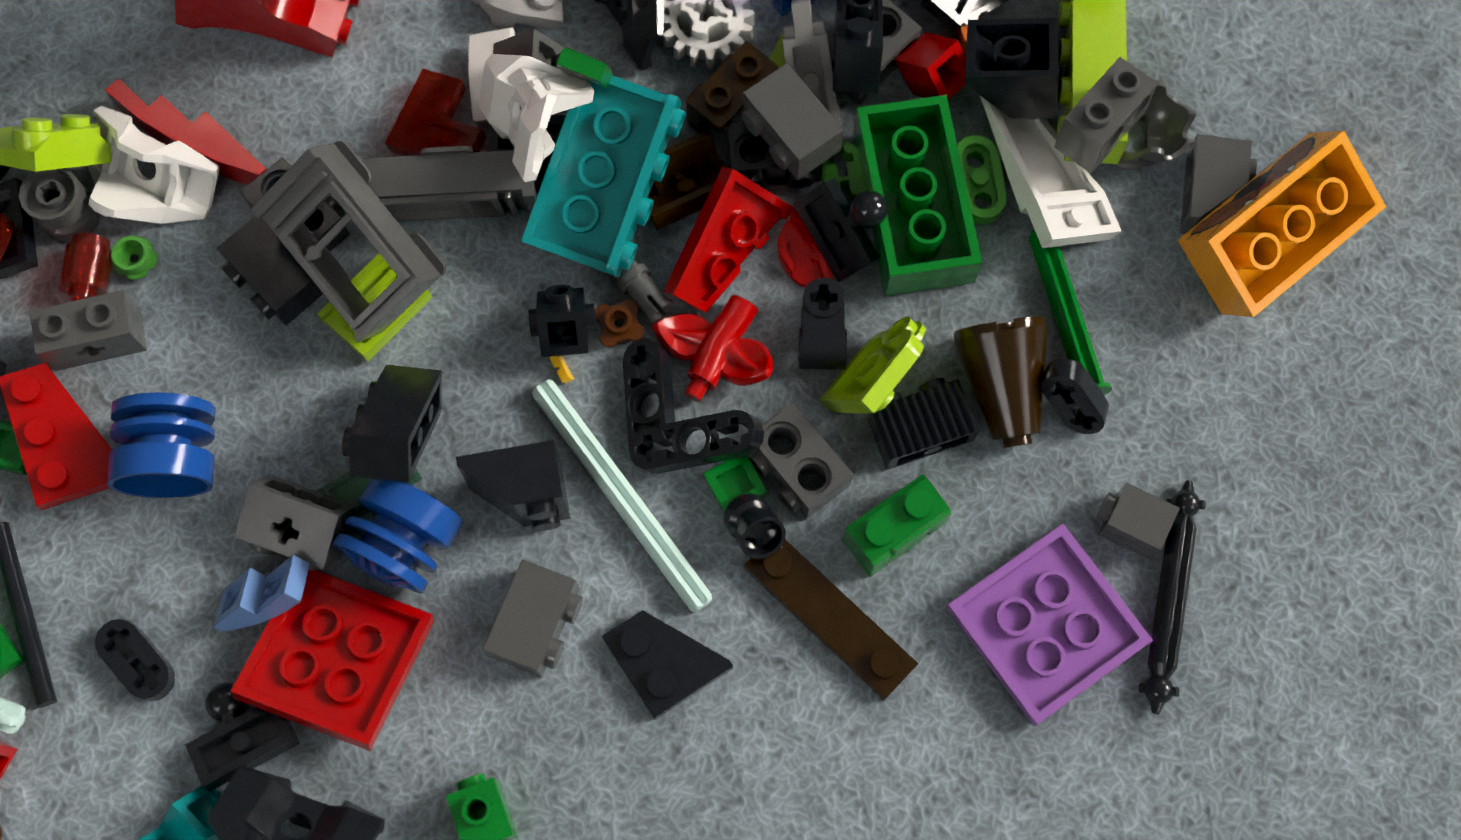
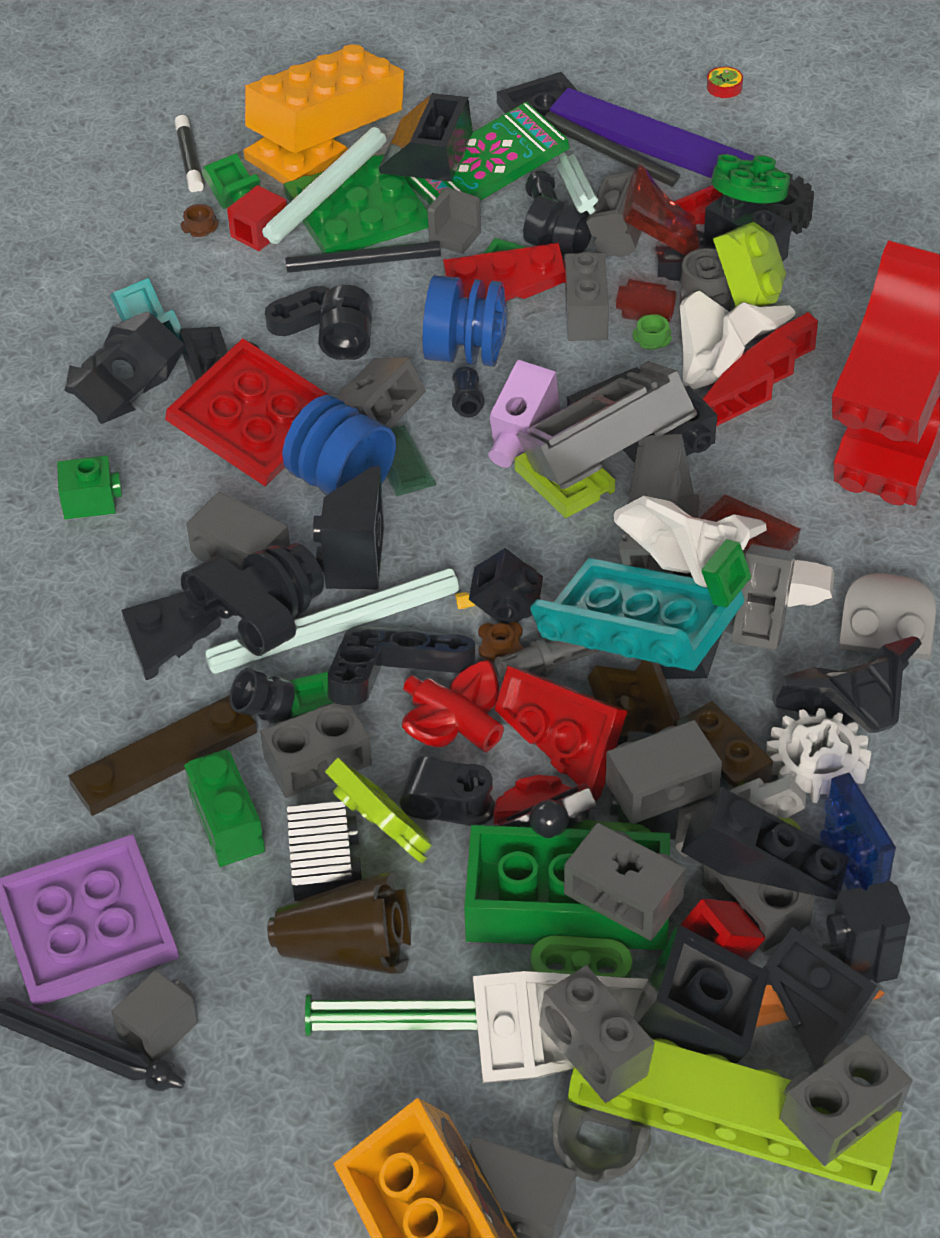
camera: 105 degrees right, 25 degrees down
(157, 592) = (345, 322): none -> black wheel
(258, 433) = (467, 398): none -> black pin
(259, 597) = (320, 372): medium blue slope -> none
(292, 344) = (524, 401): none -> lavender torso
(394, 423) = (433, 450): black brick -> none
(605, 553) = (265, 594): none -> black beam
(942, 98) = (624, 881): none -> dark grey brick
(1066, 398) = (301, 978): black beam -> none

